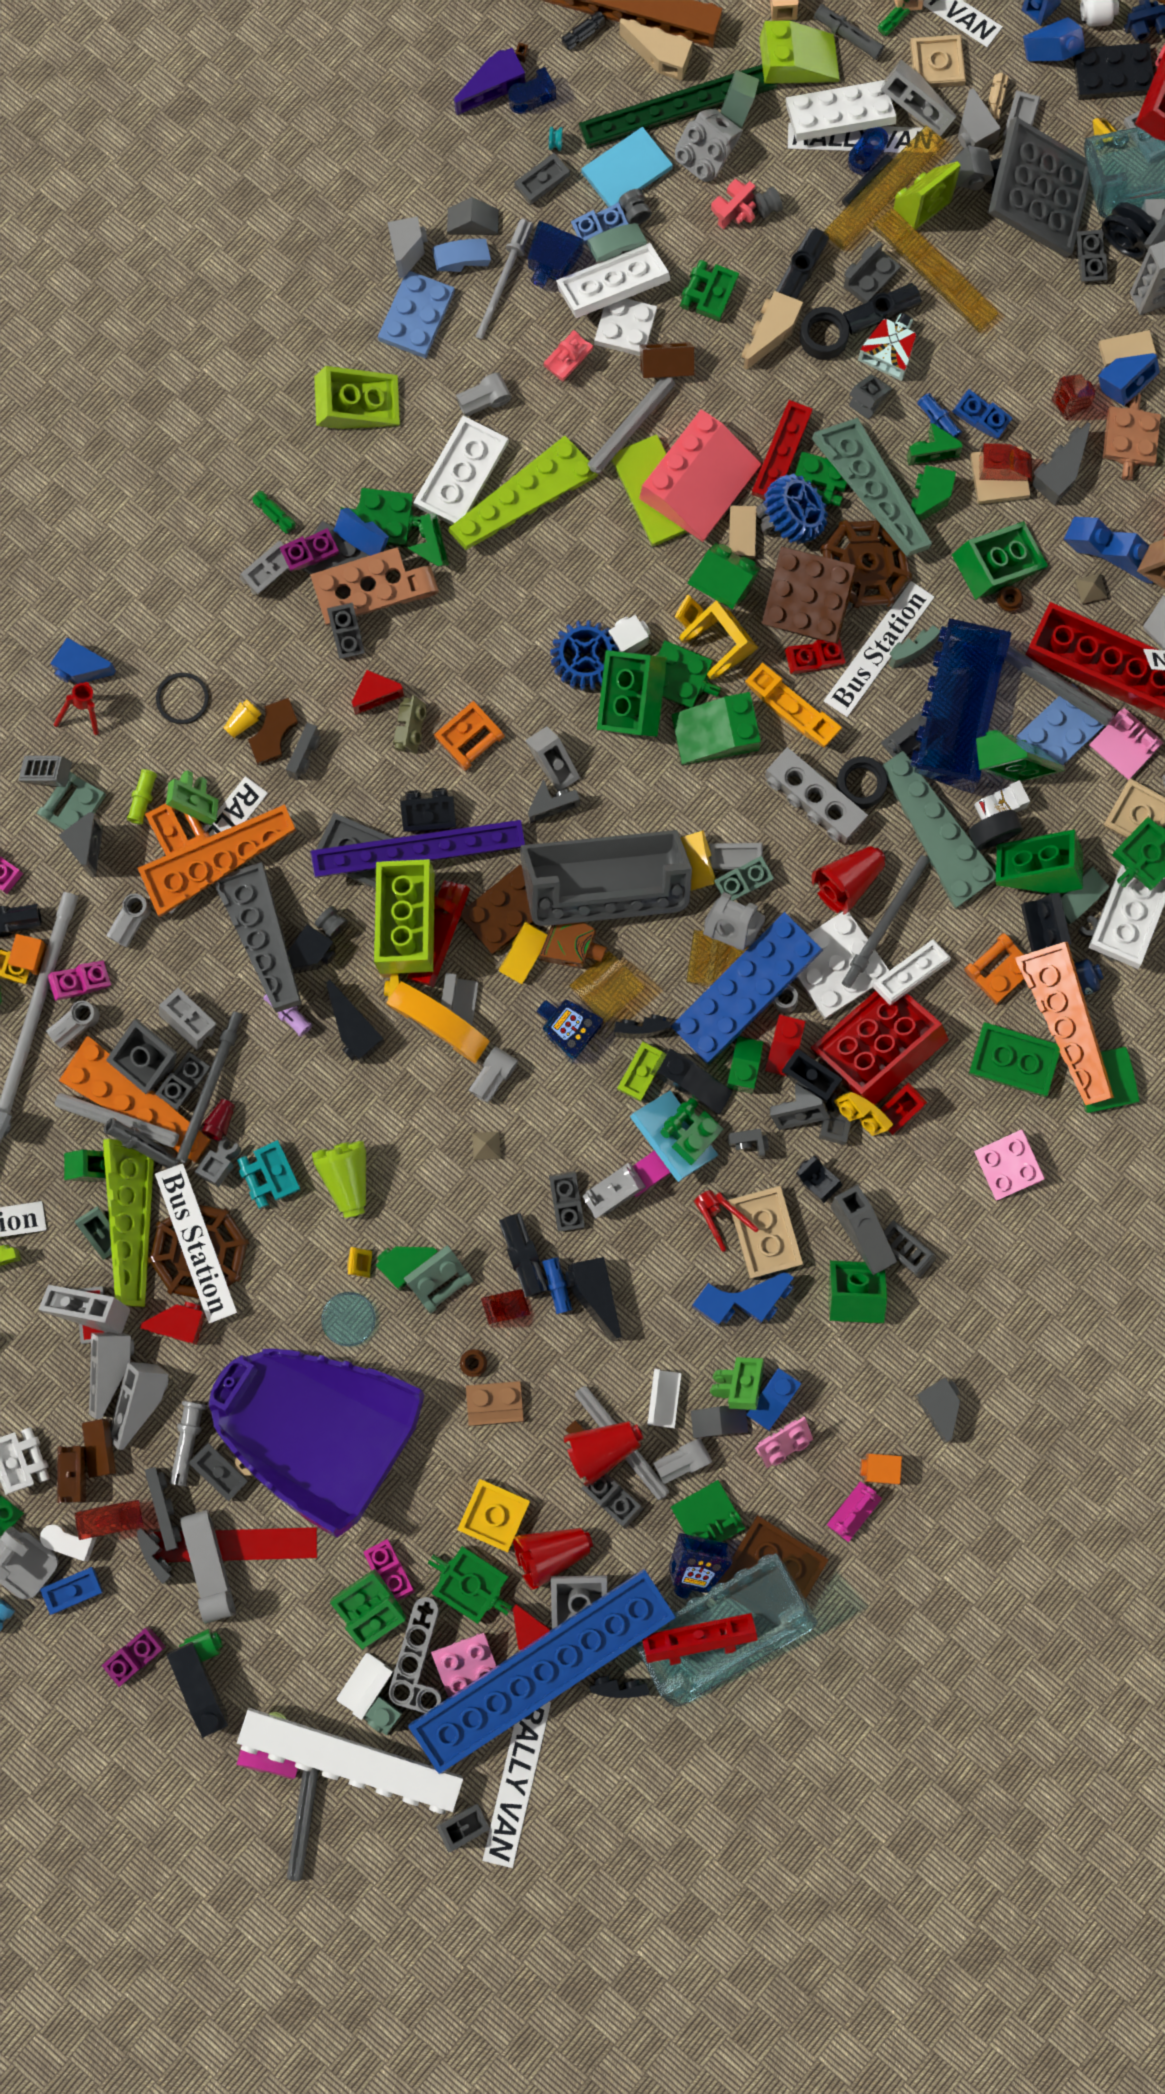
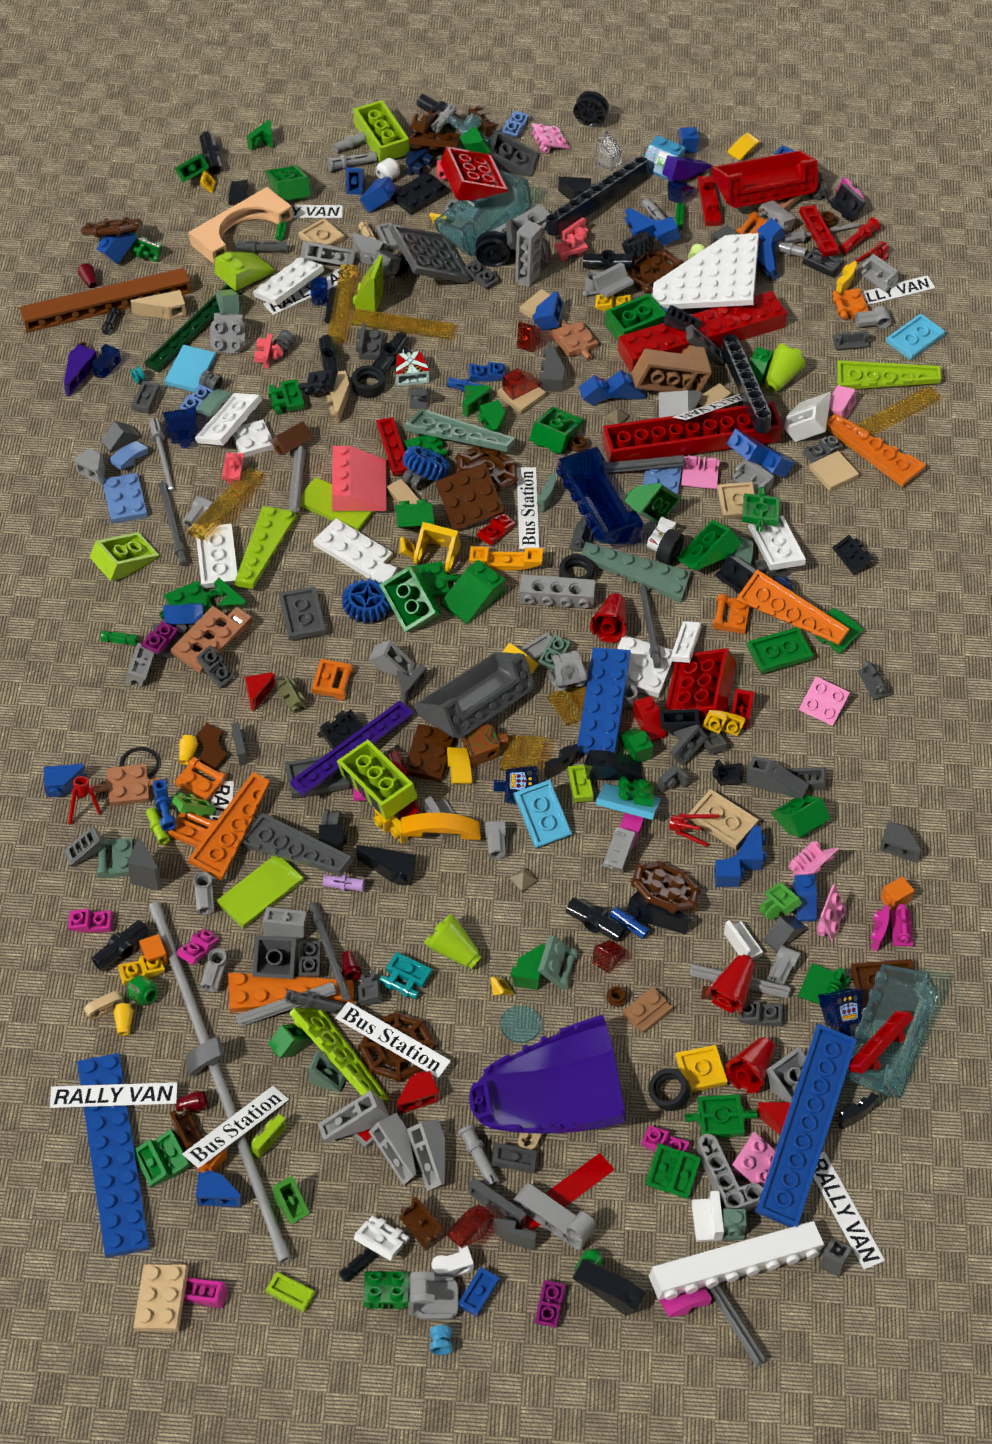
camera: 40 degrees left, 25 degrees down
(98, 1448) = (428, 1195): reddish brown tile -> none
(148, 719) = (127, 785): none -> nougat plate
(166, 771) = (163, 804): none -> blue bar
(192, 957) = (259, 890): none -> lime tile
(222, 770) = (198, 785): none -> orange plate
(418, 1512) = (659, 1078): none -> black tyre
(427, 432) = (179, 548): none -> dark grey bar
(500, 621) = (302, 613): none -> dark grey plate
(521, 405) = (225, 504): none -> clear yellow tile
(564, 1083) = (542, 813): none -> medium azure tile
(566, 1201) = (594, 877): dark grey slope -> none
(627, 567) = (352, 548): none -> white plate
(639, 1273) = (665, 886): none -> reddish brown plate
(758, 300) = (319, 382): none -> black bracket
(819, 1364) = (811, 859): none -> bright pink hinge
(834, 1491) = (881, 922): none -> dark pink slope
(1092, 1179) = (873, 681): none -> dark grey hinge

